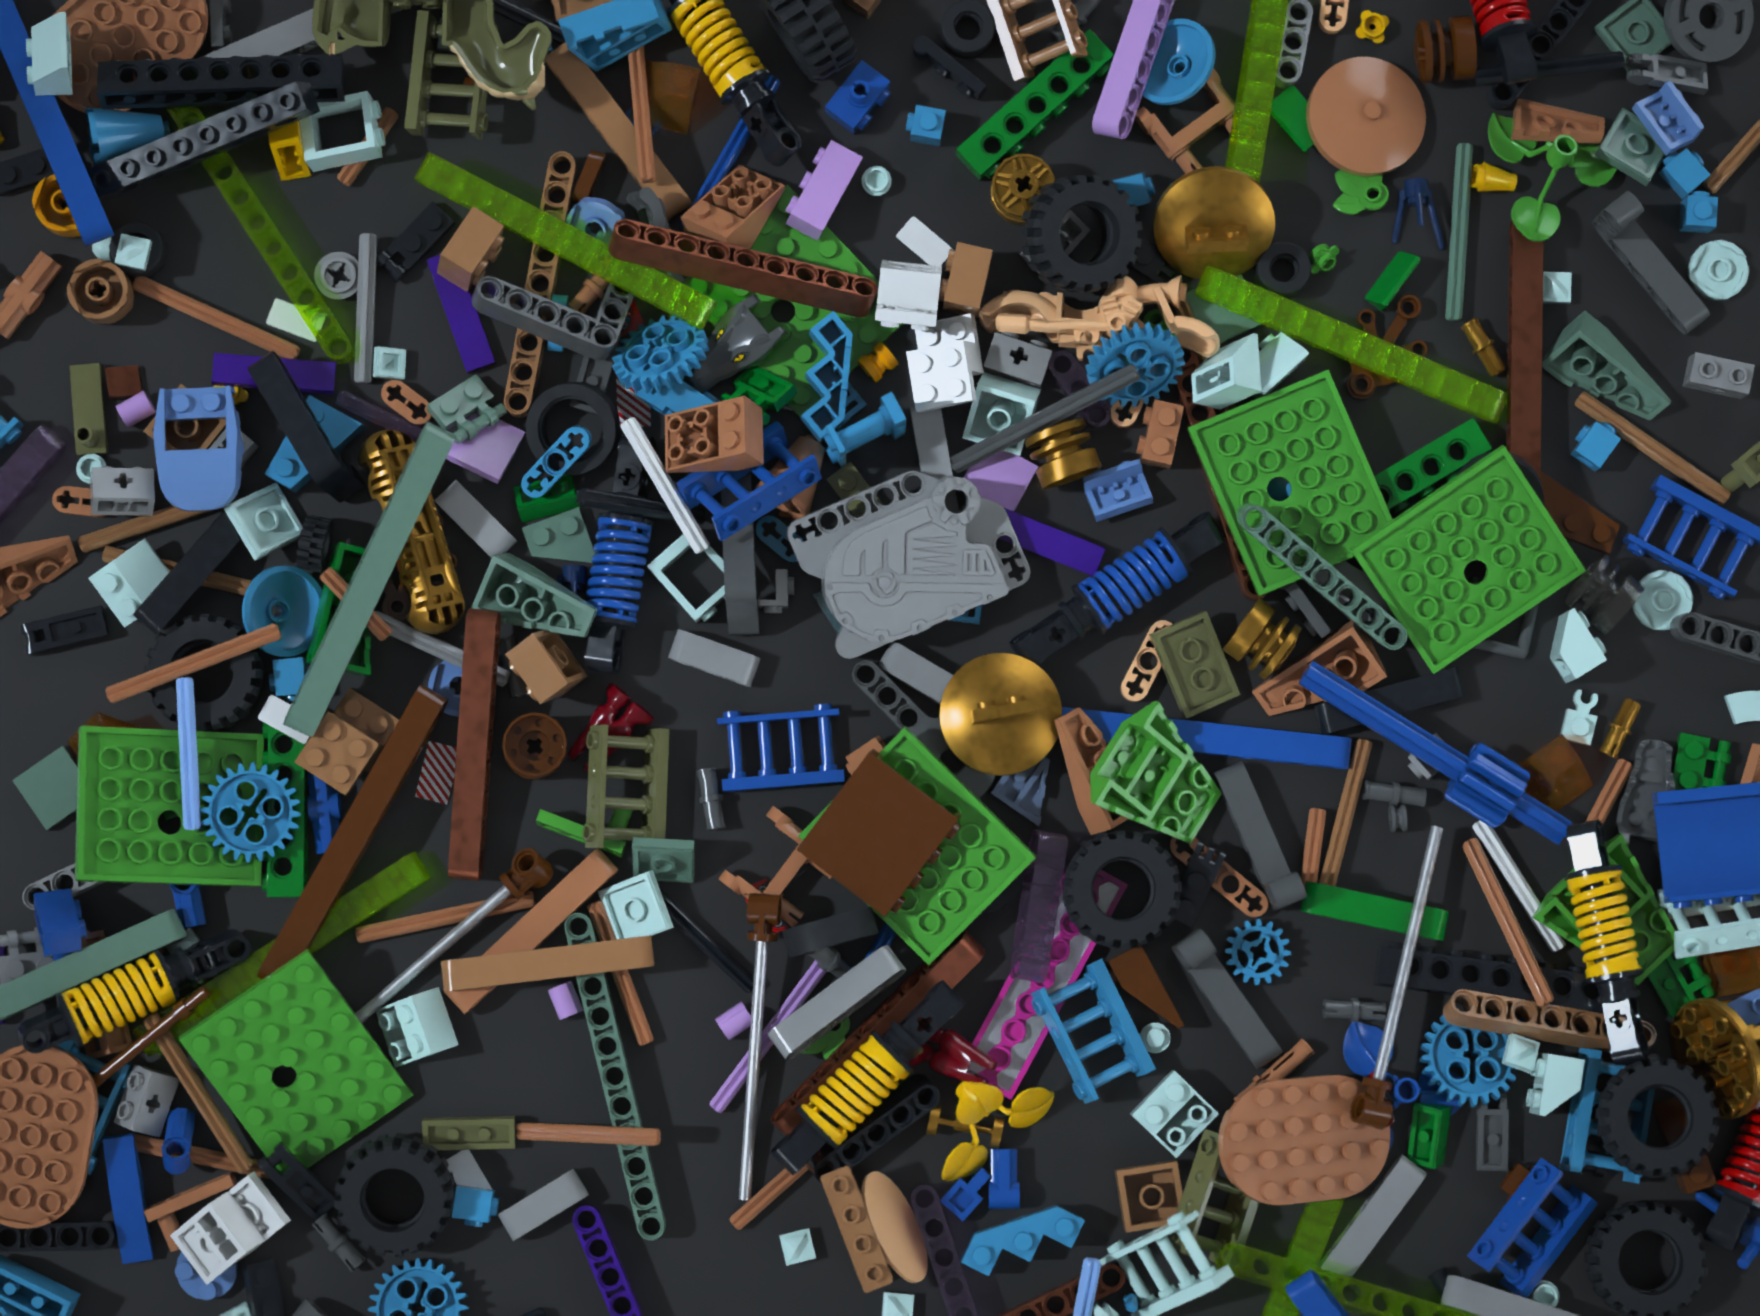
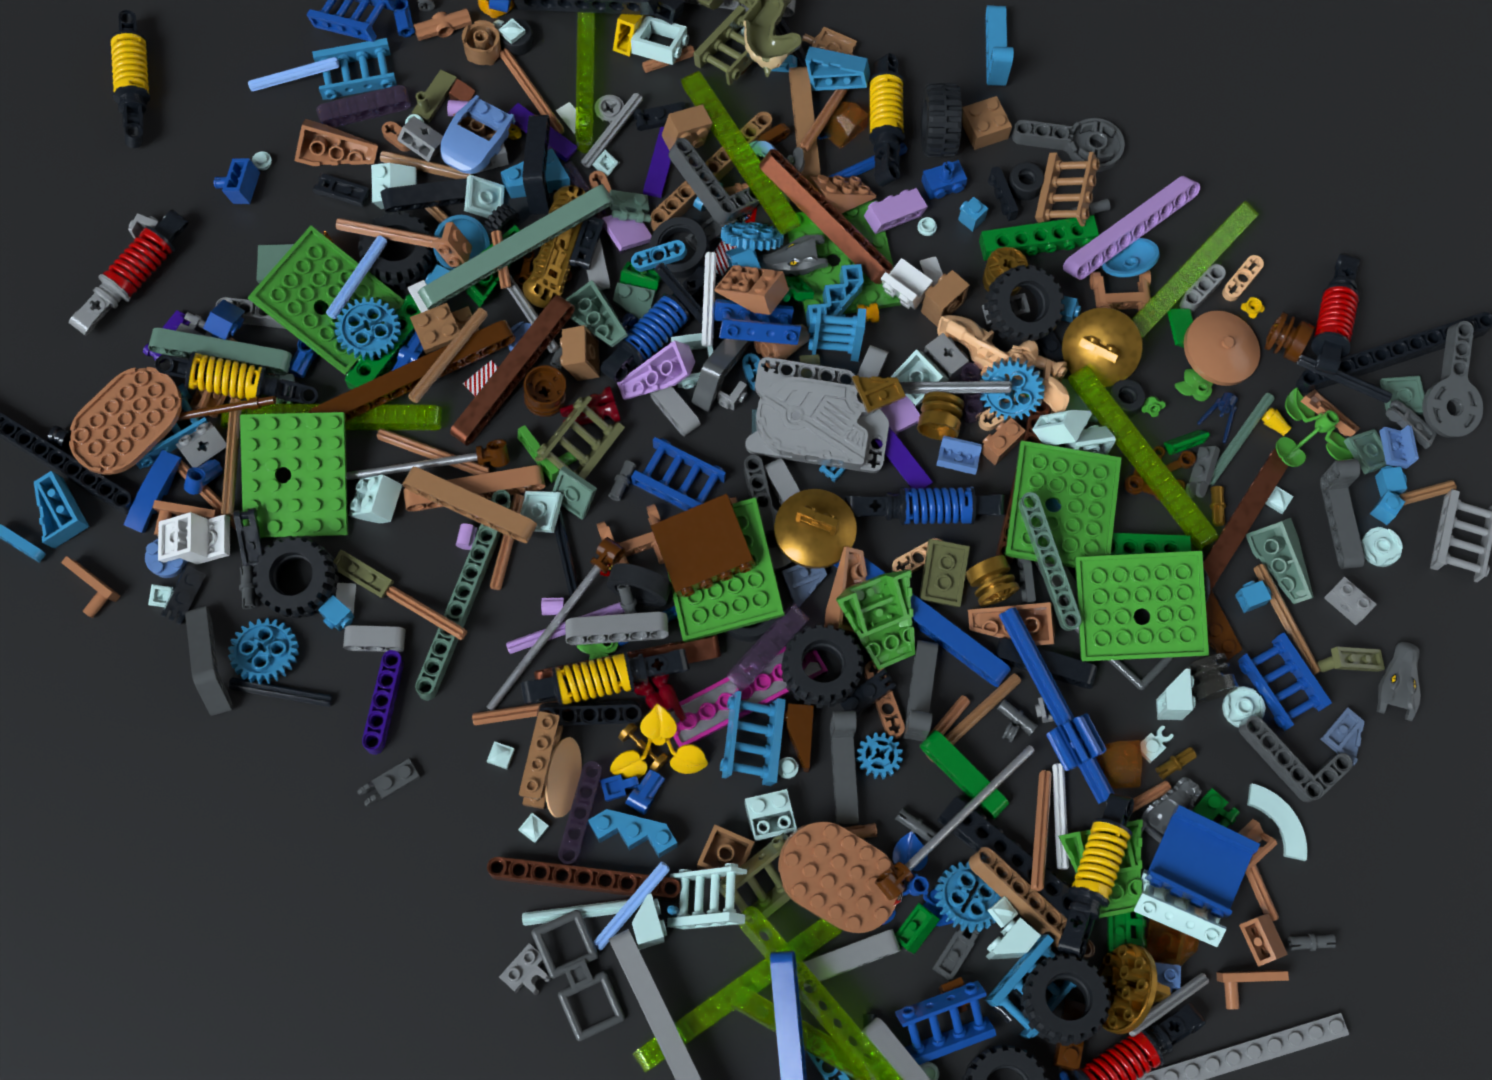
camera: 30 degrees right, 15 degrees down
(286, 628) = (453, 246): none -> nougat bracket
(384, 785) = (447, 355): none -> medium nougat axle
(451, 506) = (587, 242): none -> black plate
(669, 628) = (659, 372): none -> lavender wedge
(945, 363) = (904, 331): white bracket -> none
(972, 488) = (878, 391): none -> pearl gold wing
(1438, 312) = (1202, 471): none -> dark grey hinge

